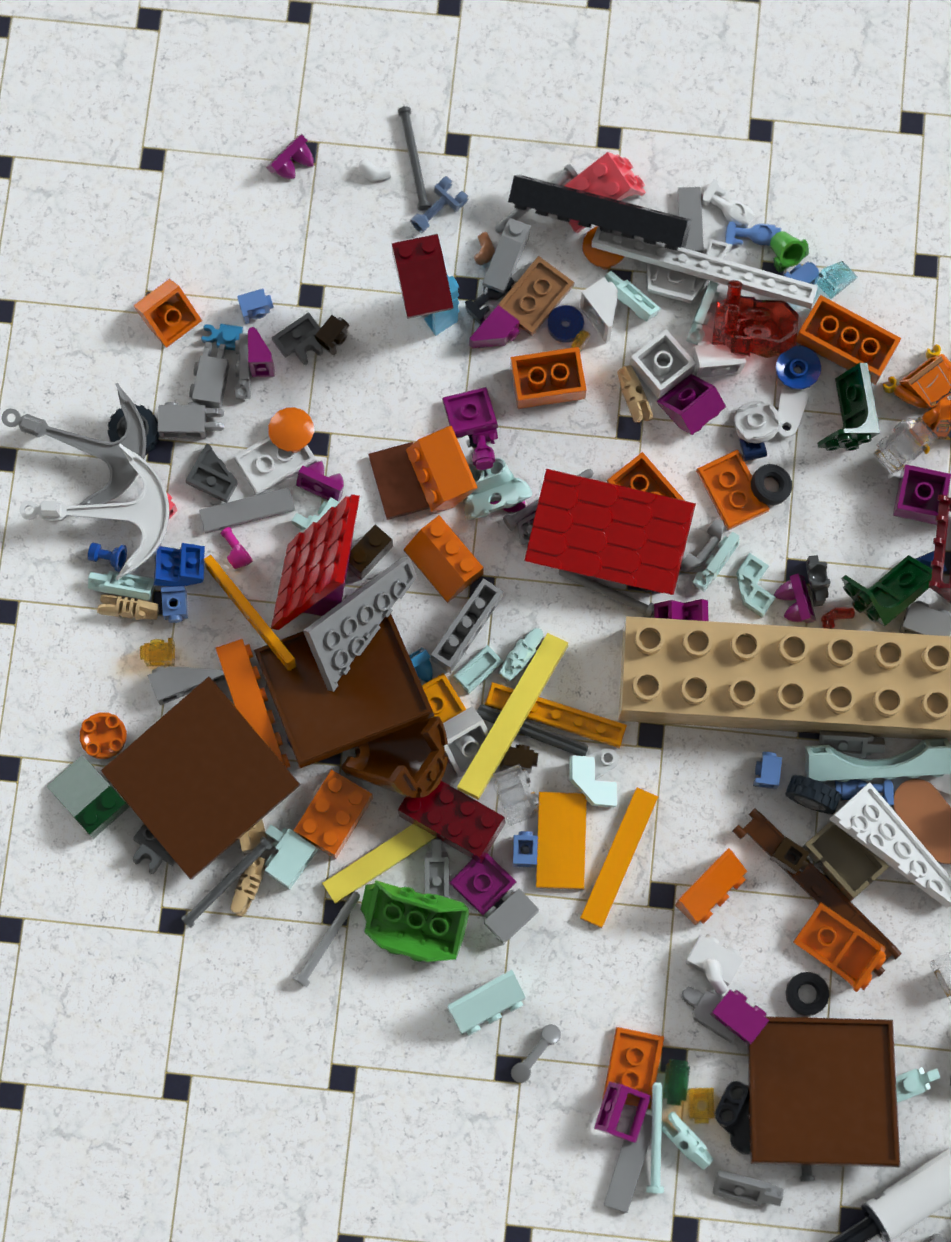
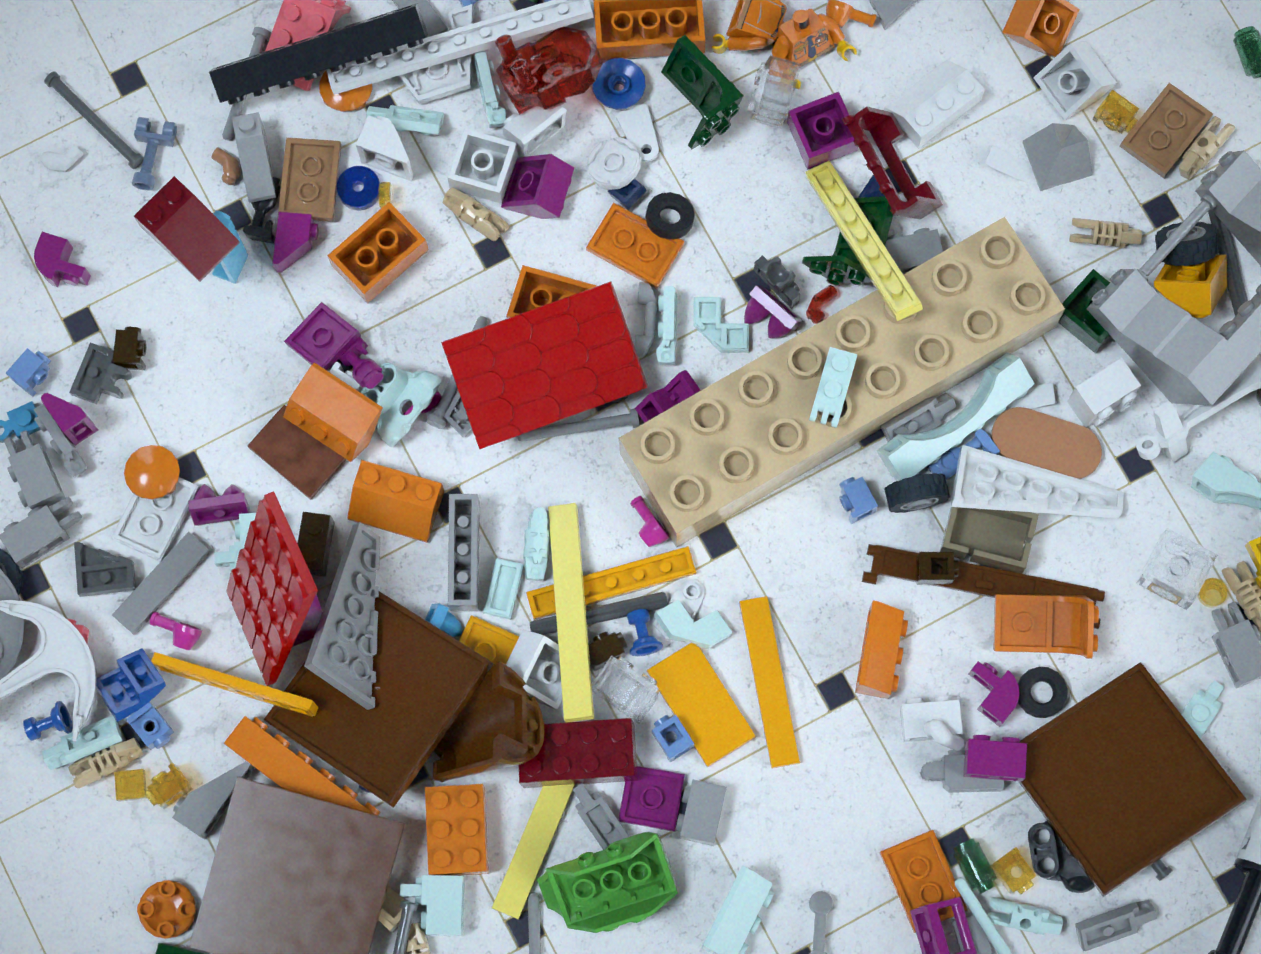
camera: 30 degrees left, 0 degrees up
(134, 634) = (130, 785): none -> clear yellow tile
(320, 238) = (52, 259): none -> magenta brick
(550, 772) = (644, 644): none -> blue piece
(609, 698) = (652, 531): none -> dark pink bar
(778, 976) = (1002, 695): none -> magenta brick
(801, 679) = (833, 385): none -> light aqua hinge
(895, 591) = (864, 241): none -> light yellow tile

